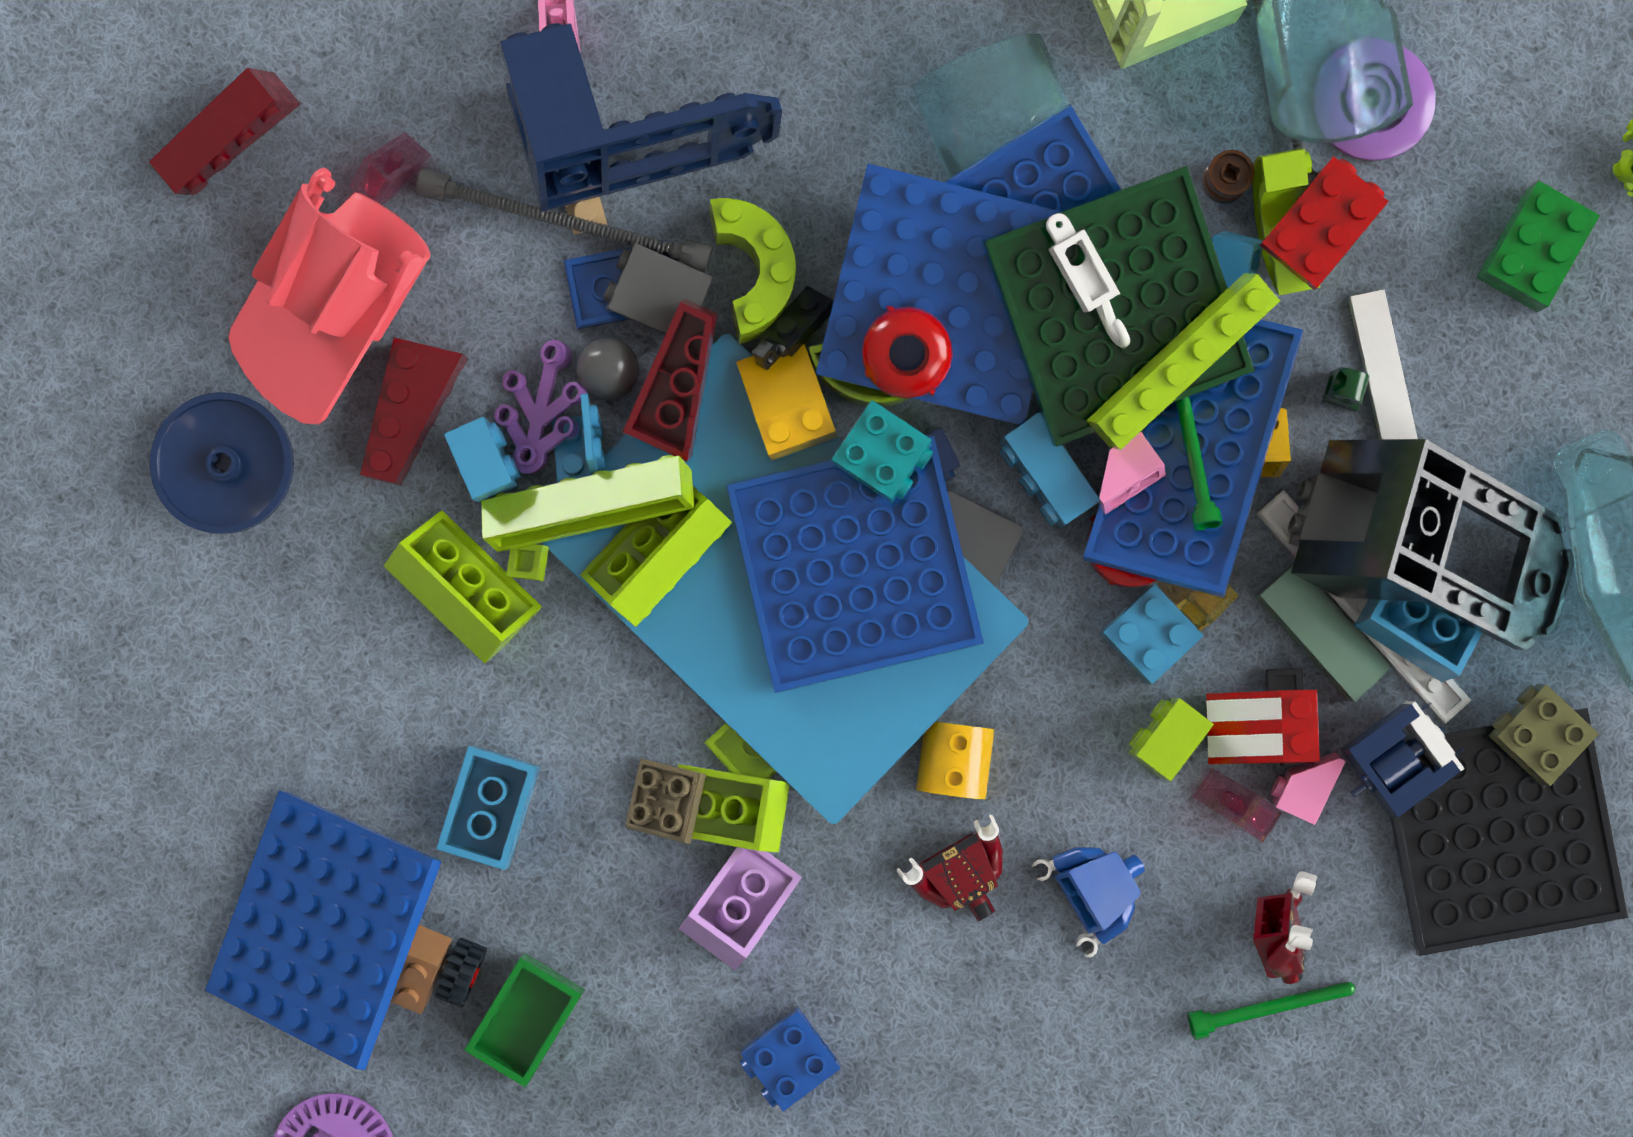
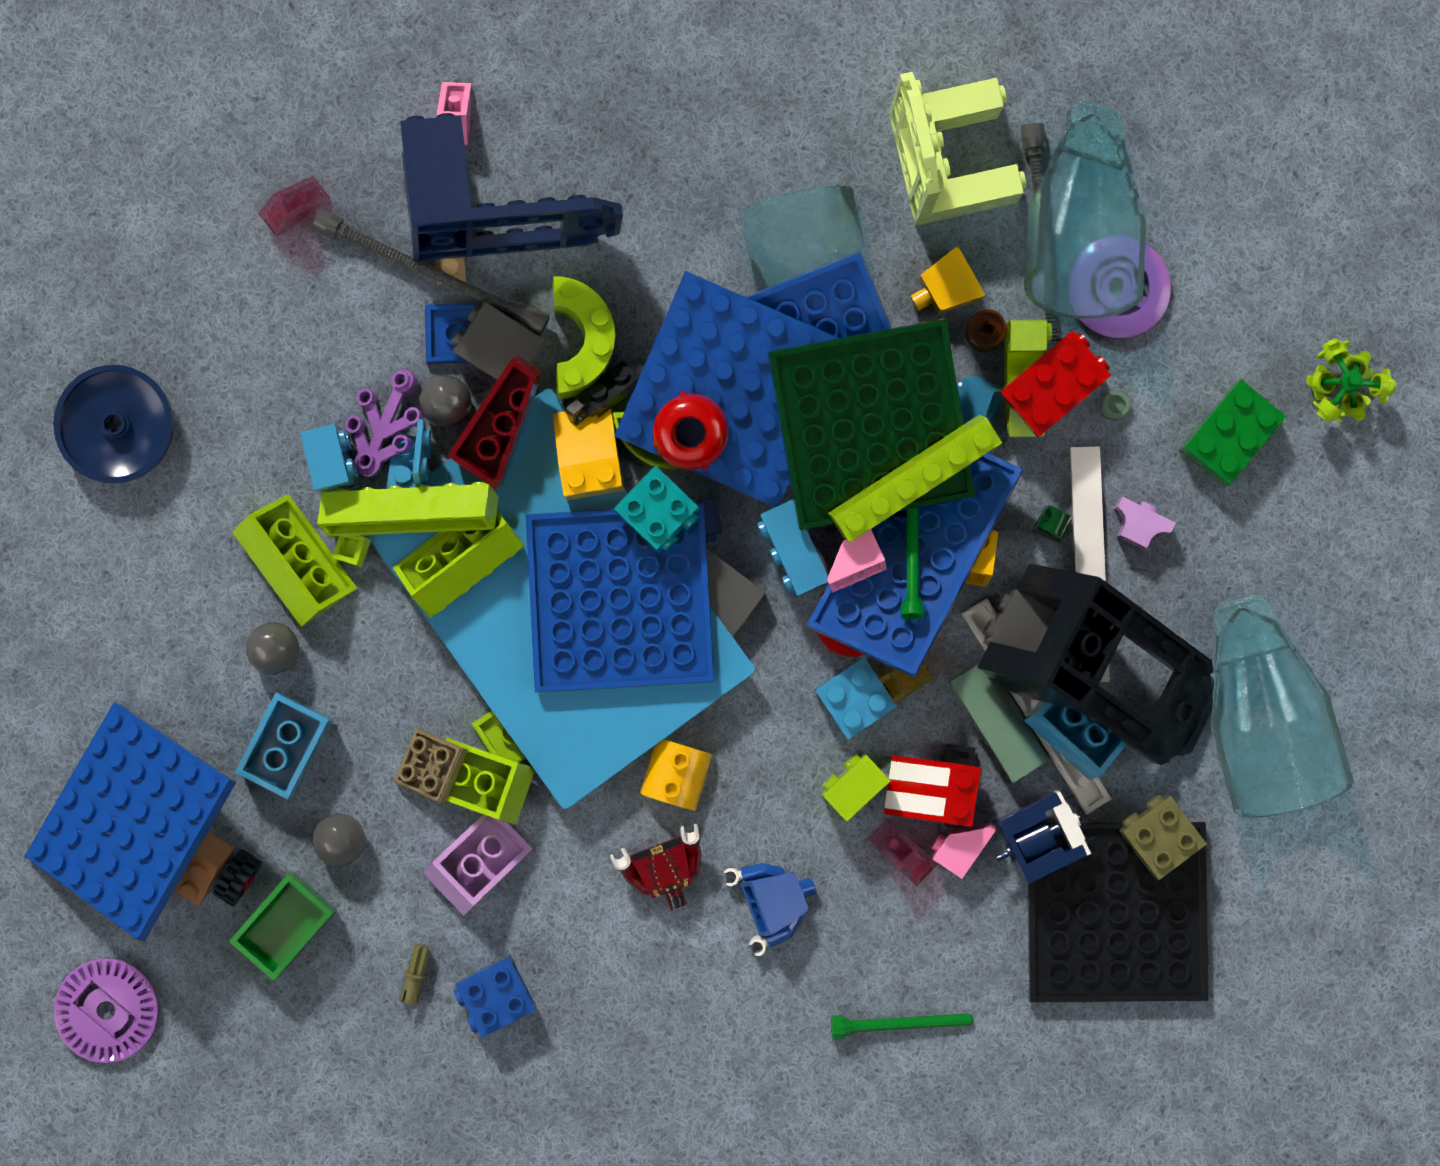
camera: 10 degrees right, 0 degrees up
(223, 130) = (163, 149): dark red wedge -> none
(323, 298) = (221, 303): coral piece -> none
(408, 406) = (275, 403): dark red wedge -> none
(455, 694) = (272, 648): none -> dark grey piece
(572, 906) = (338, 839): none -> dark grey piece
(690, 1050) = (415, 975): none -> olive axle
(1090, 279) = (848, 398): white piece -> none
(1174, 130) = (948, 284): none -> yellow torso
(1279, 933) = (917, 964): dark red torso -> none
(1393, 237) = (1115, 404): none -> sand green tile
(1448, 370) = (1141, 522): none -> lavender brick

